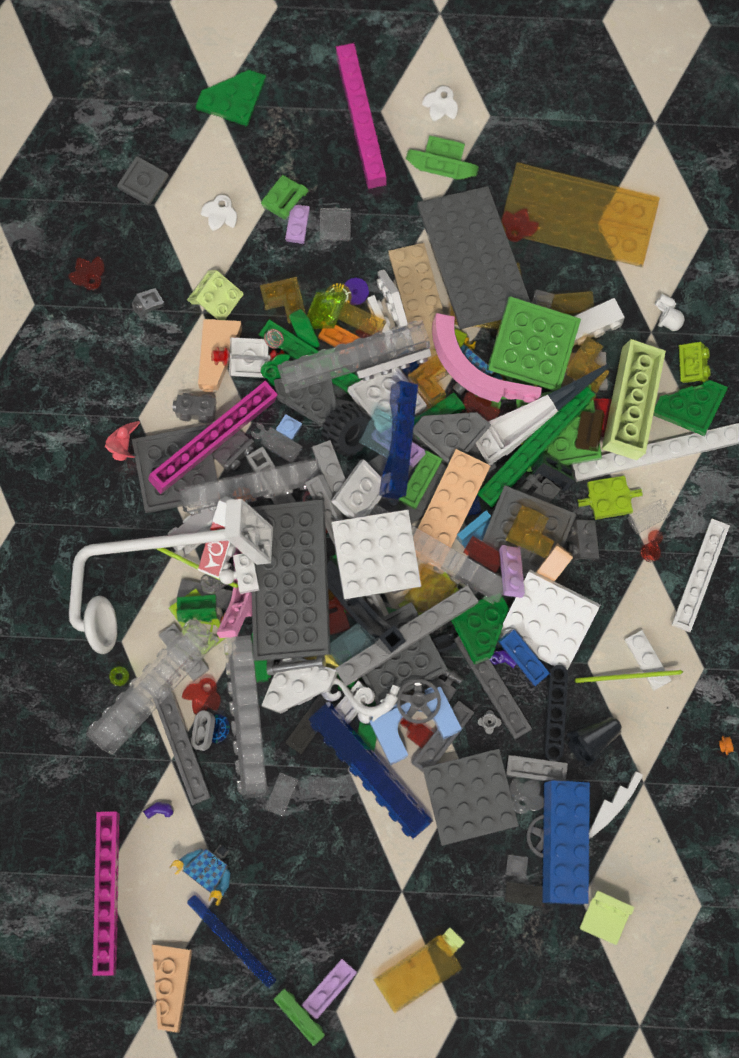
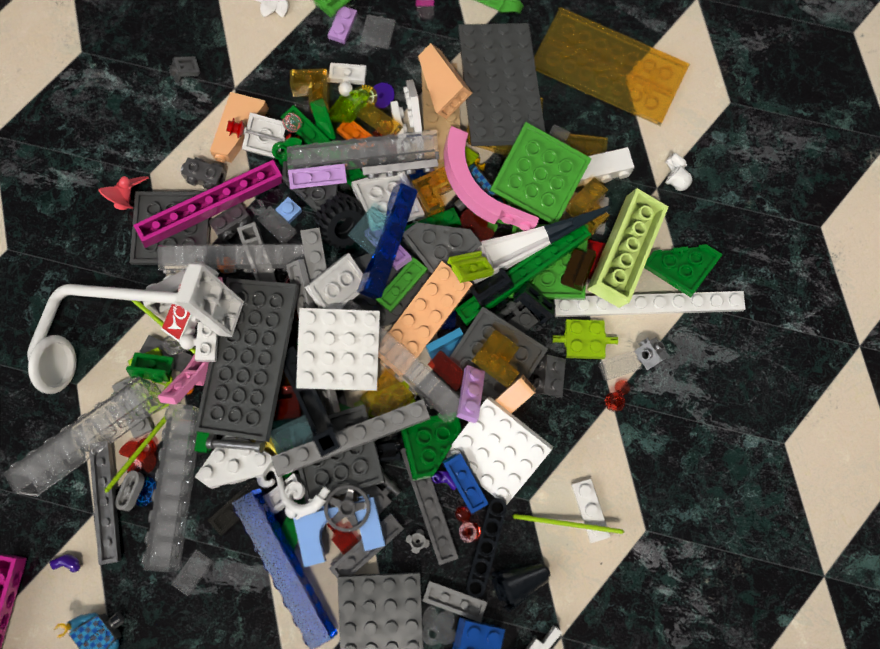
camera: 10 degrees right, 0 degrees up
(86, 271) = (135, 31): clear red plate -> none
(112, 676) = (59, 415): clear neon green plate -> none
(204, 689) = (135, 455): none -> lime axle
(216, 295) = (250, 74): yellowish green bracket -> none
(314, 389) = (317, 176): none -> lavender plate
(315, 277) = (347, 75): none -> white plate
(417, 267) = (443, 81): none -> light nougat slope
(485, 449) = (470, 266): none -> lime plate
(510, 465) = (492, 288): none -> black hinge
(520, 224) = (551, 62): clear red plate -> none
(527, 688) = (463, 515): none -> clear red plate
(676, 498) = (651, 352): none -> flat silver brick
(694, 362) = (693, 224): lime bracket -> none
(700, 575) = (660, 435): white plate -> none
(726, 745) = (654, 616): orange plate -> none

